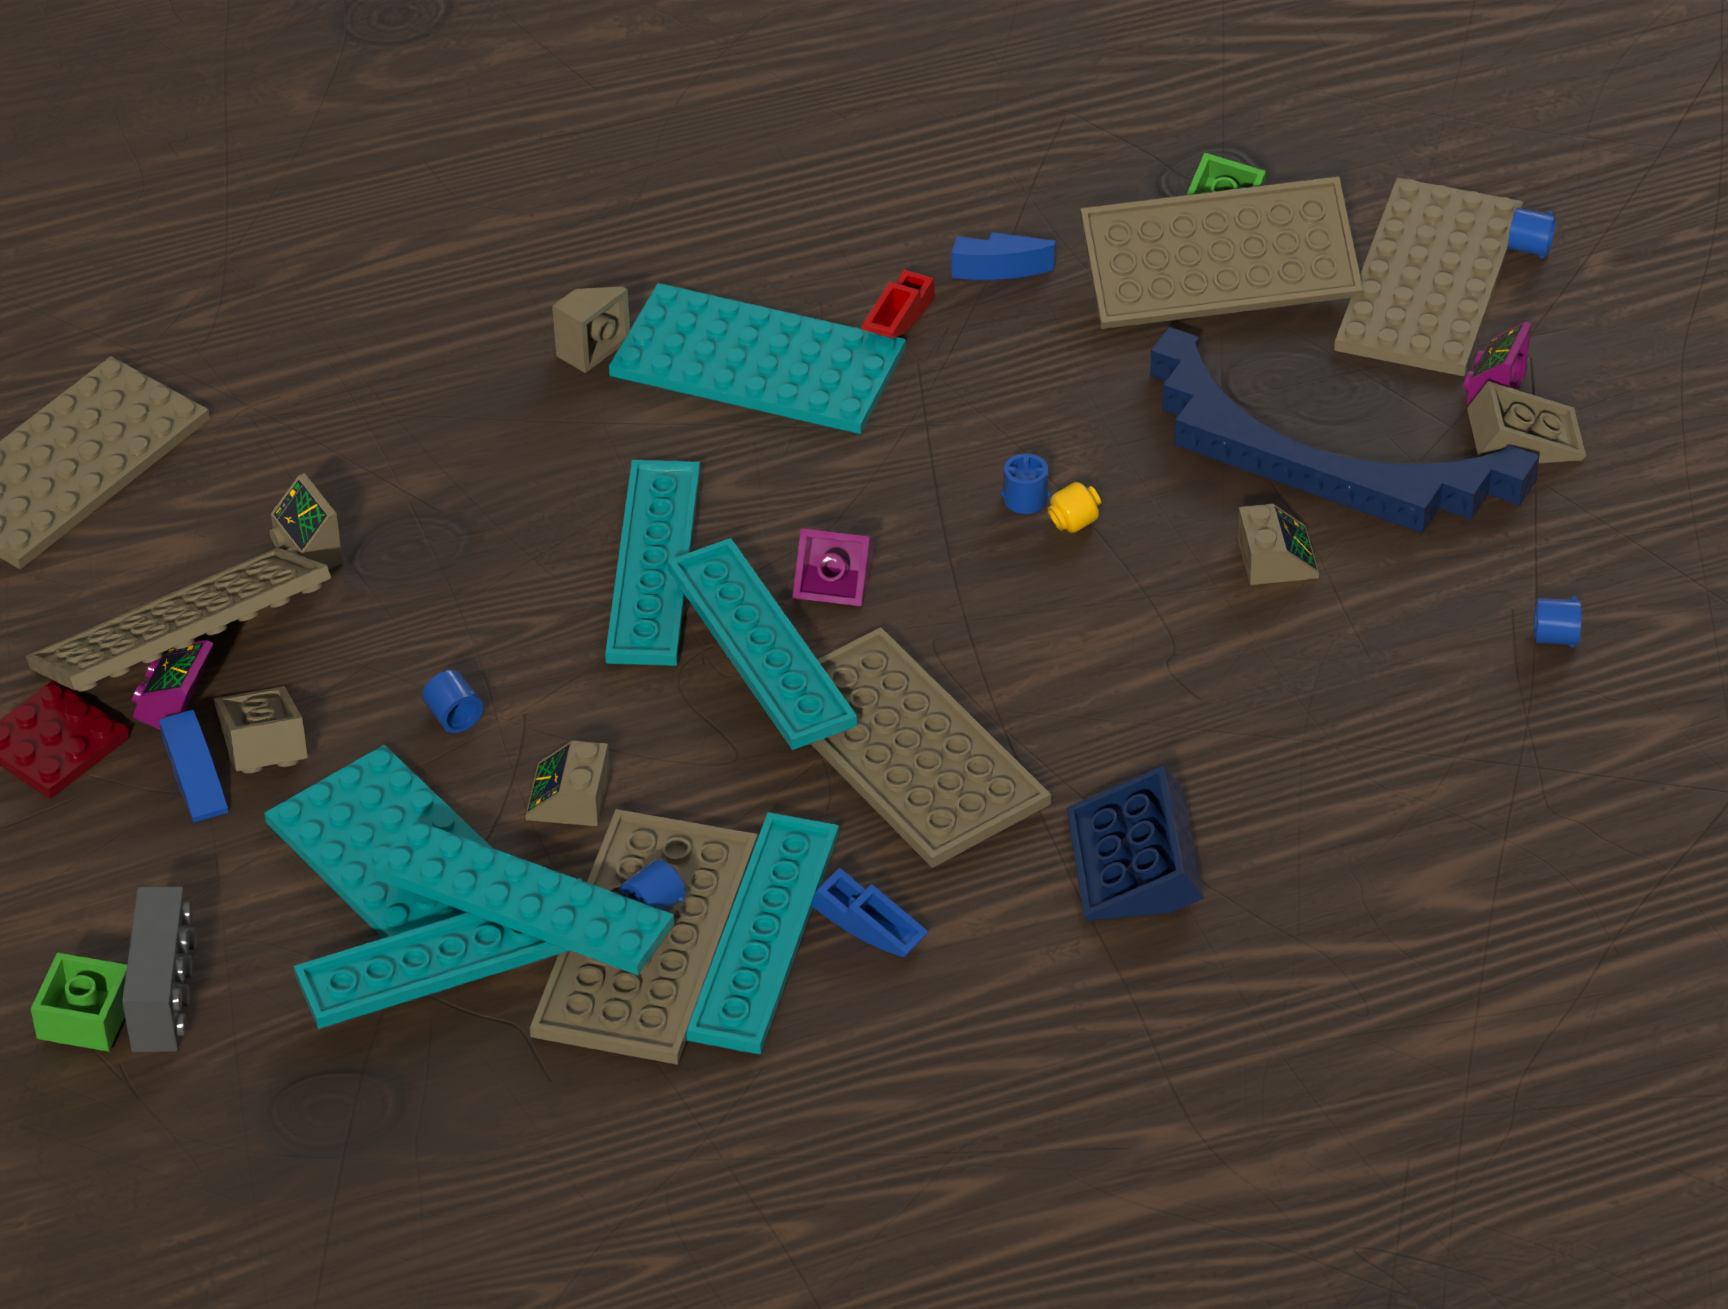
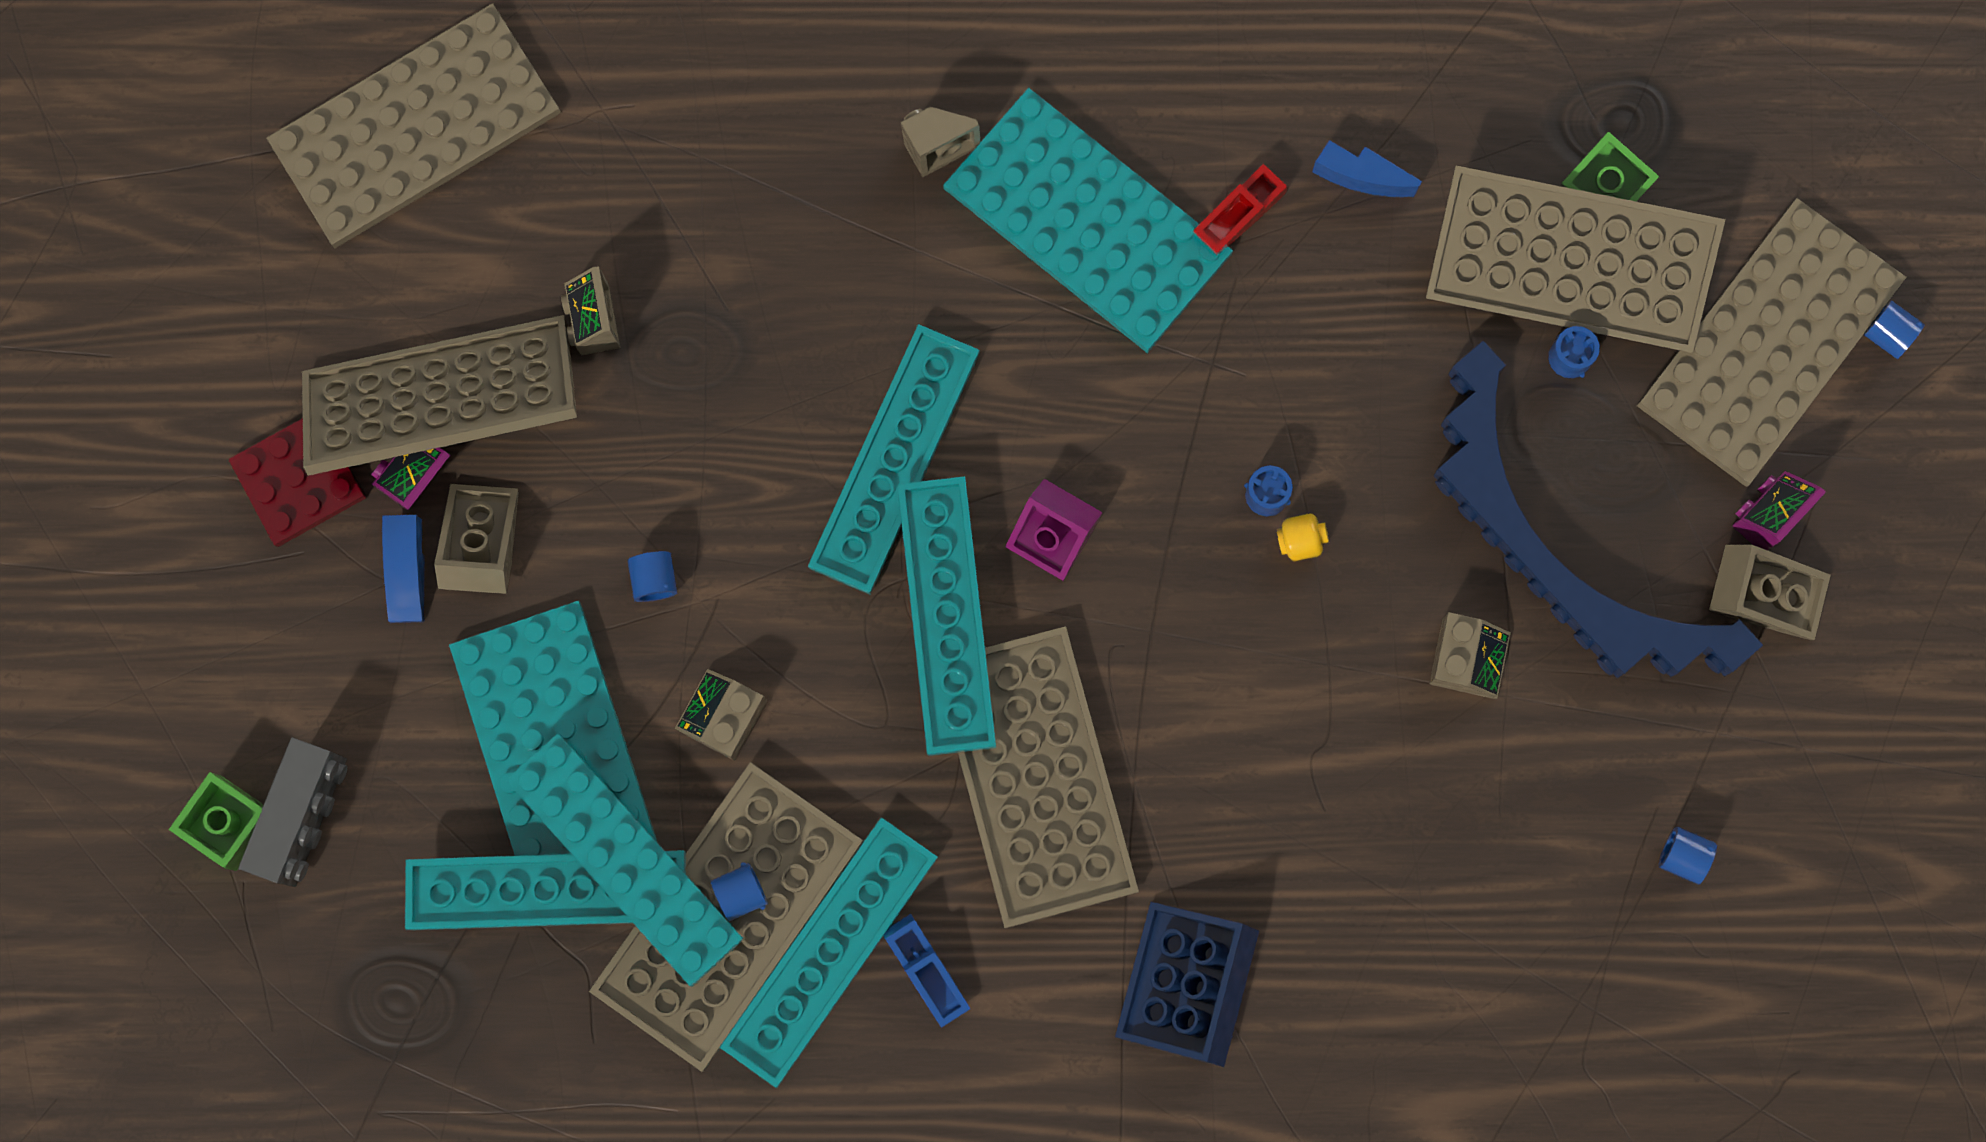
camera: 25 degrees right, 35 degrees up
(1256, 320) = (1574, 352): none -> blue piece

